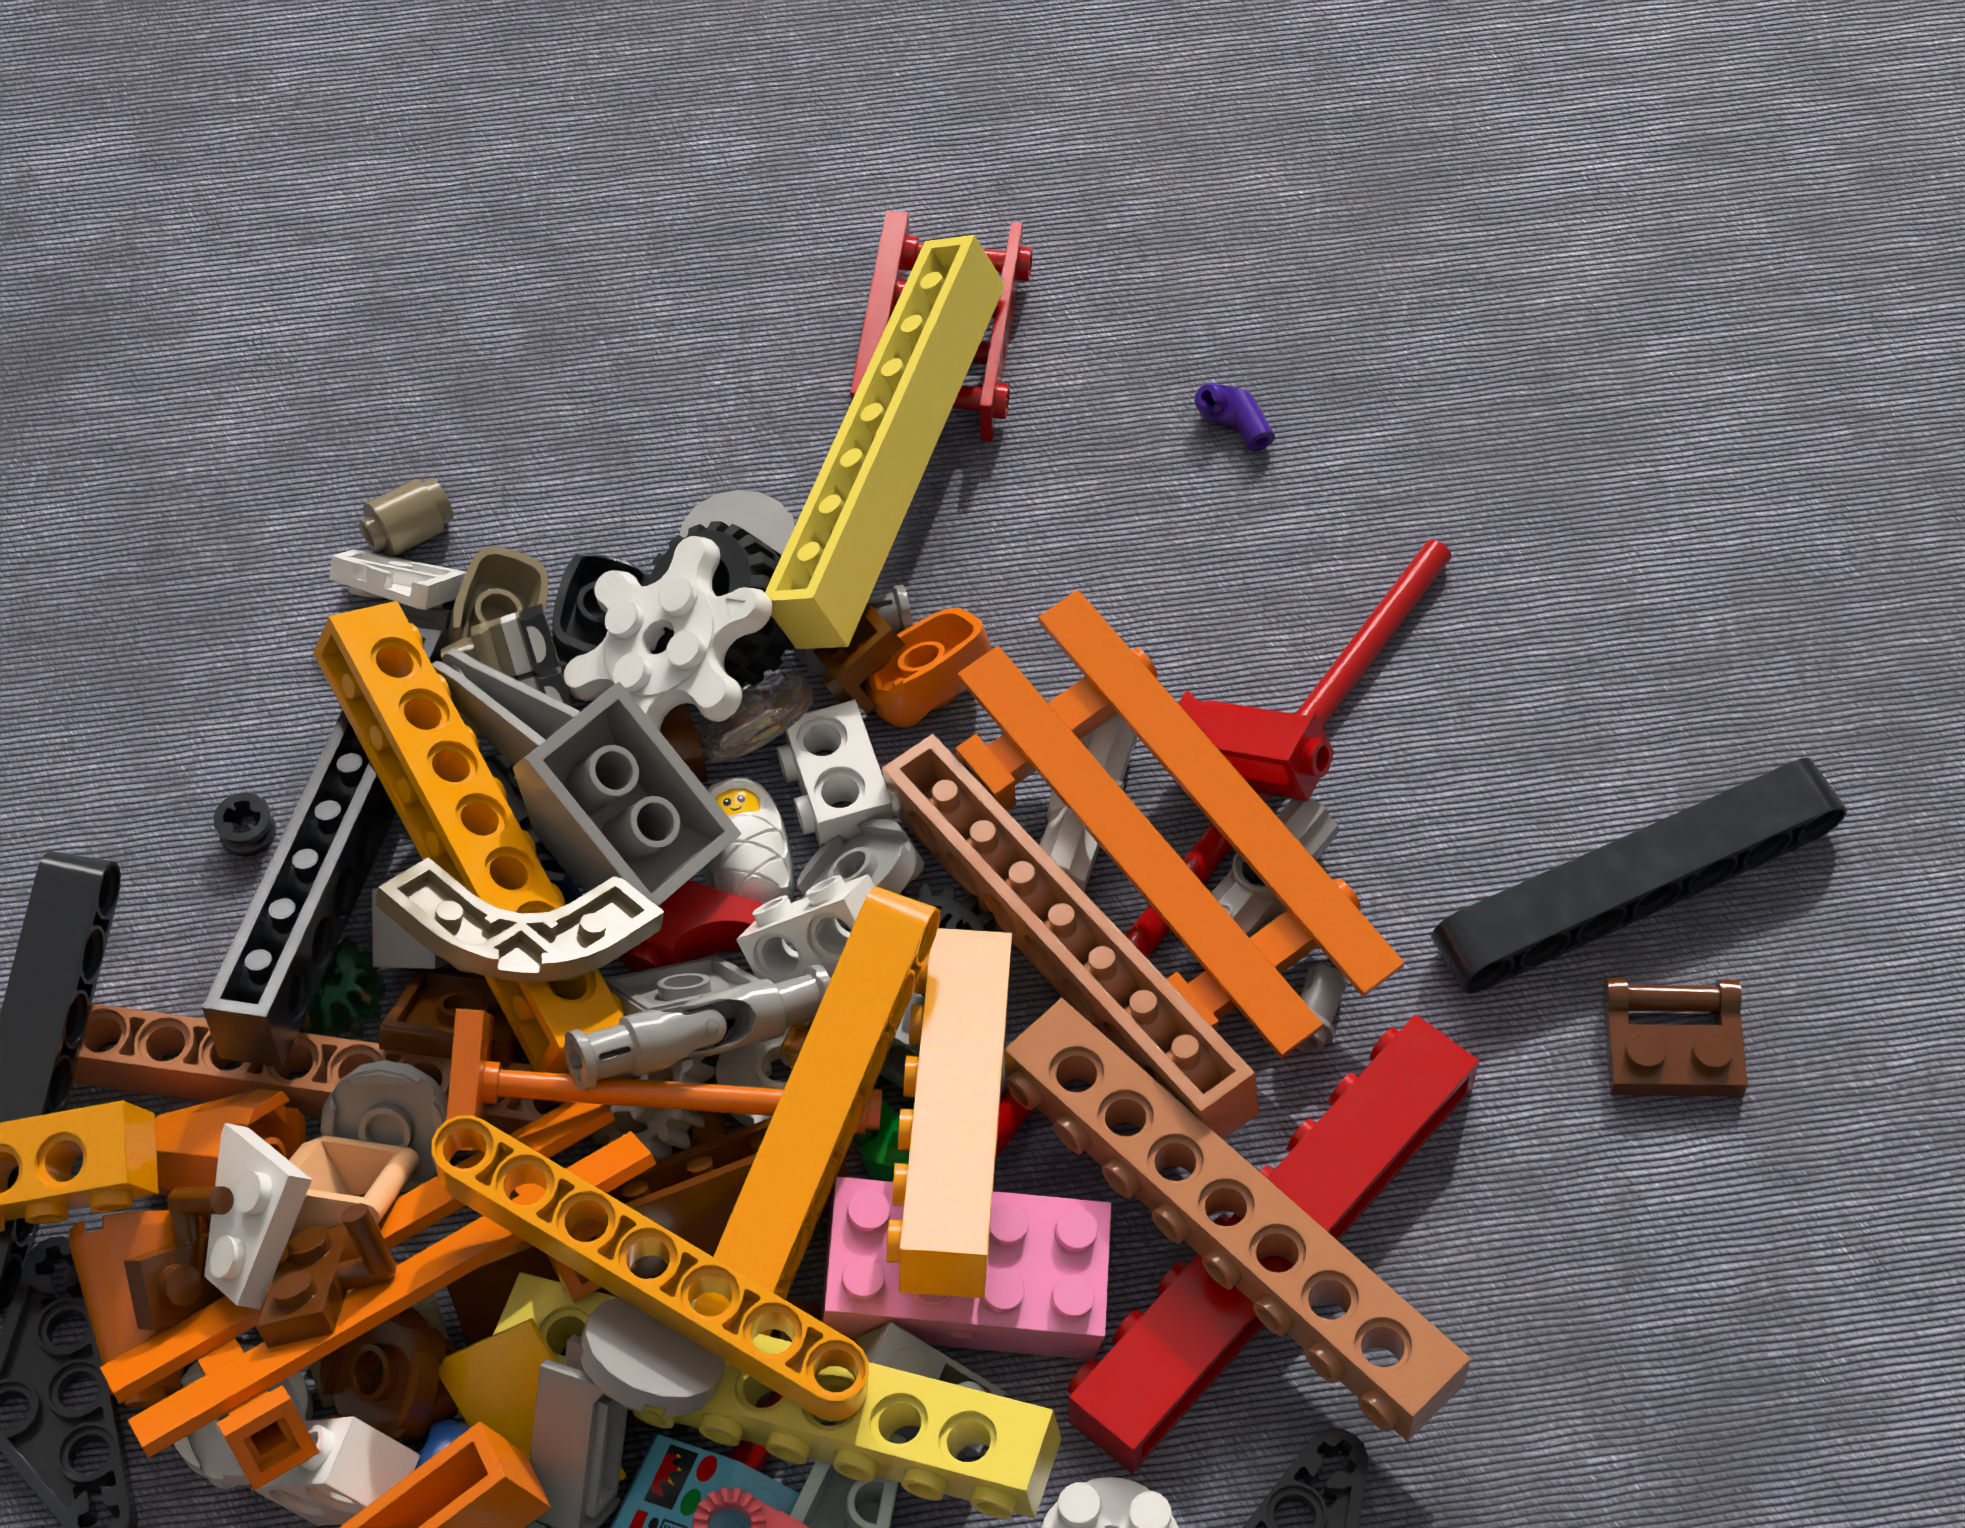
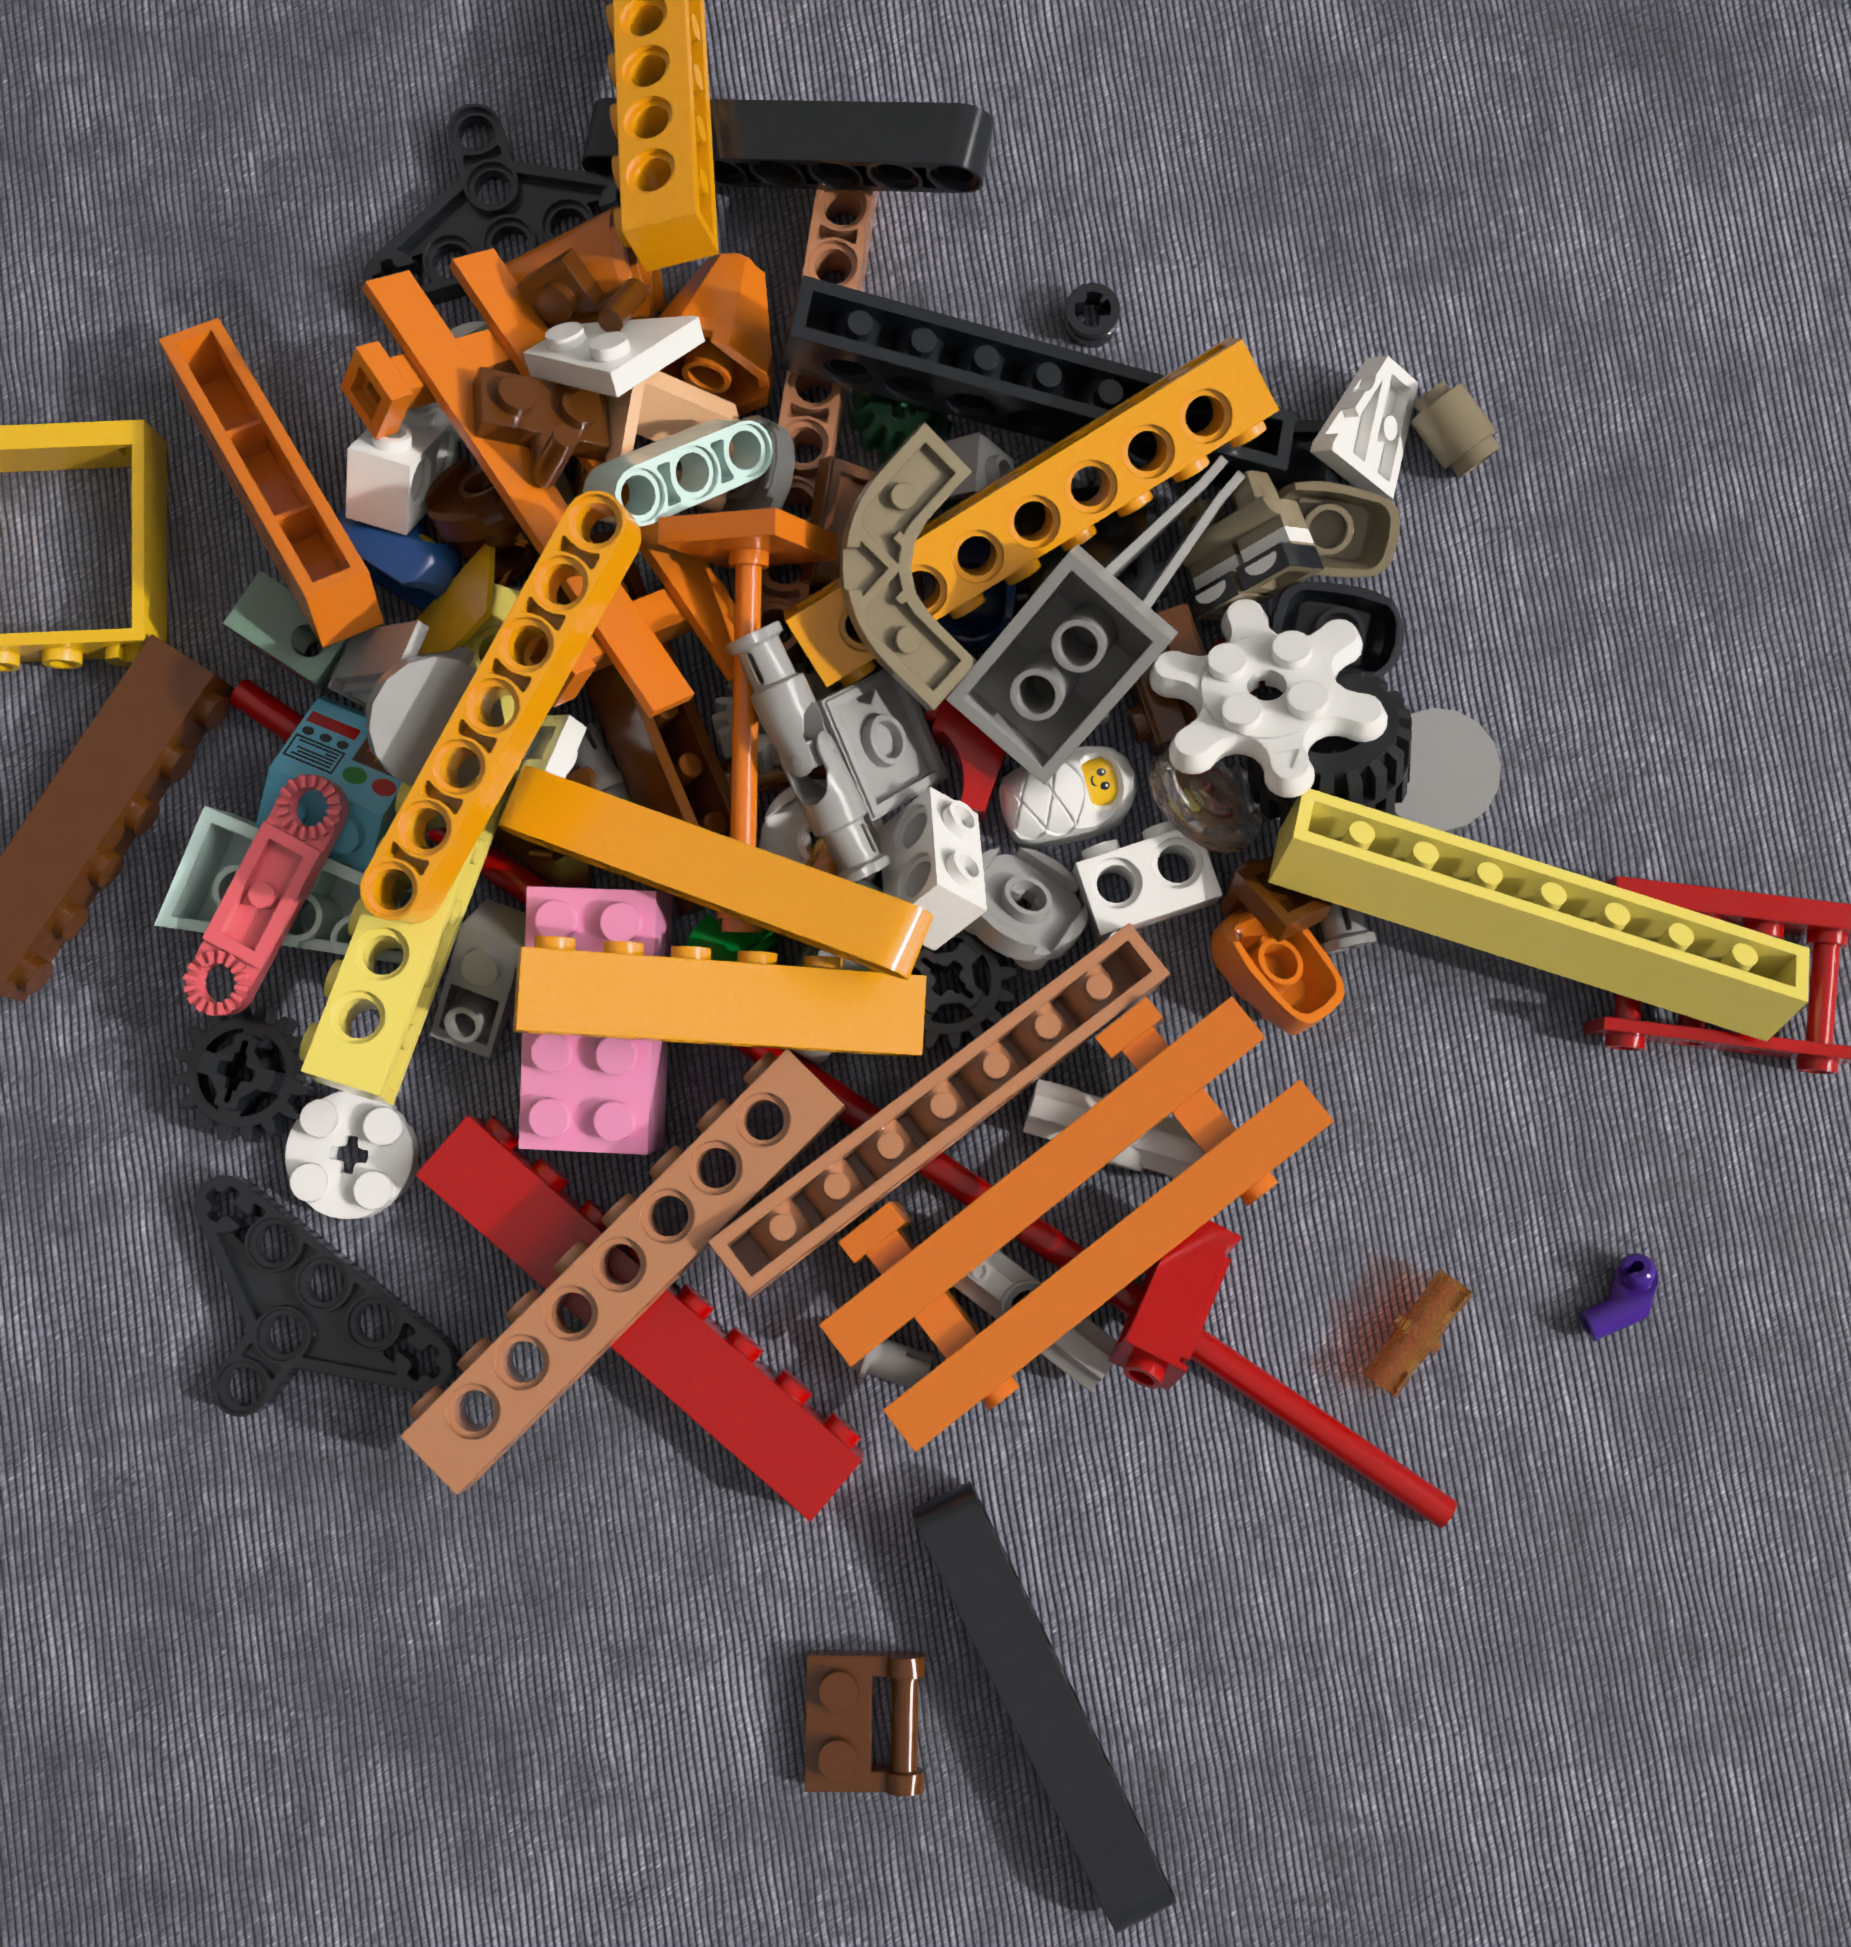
camera: 90 degrees right, 25 degrees up
(386, 1152) = (705, 468): none -> light aqua beam
(1272, 566) = (1417, 1333): none -> clear orange pin

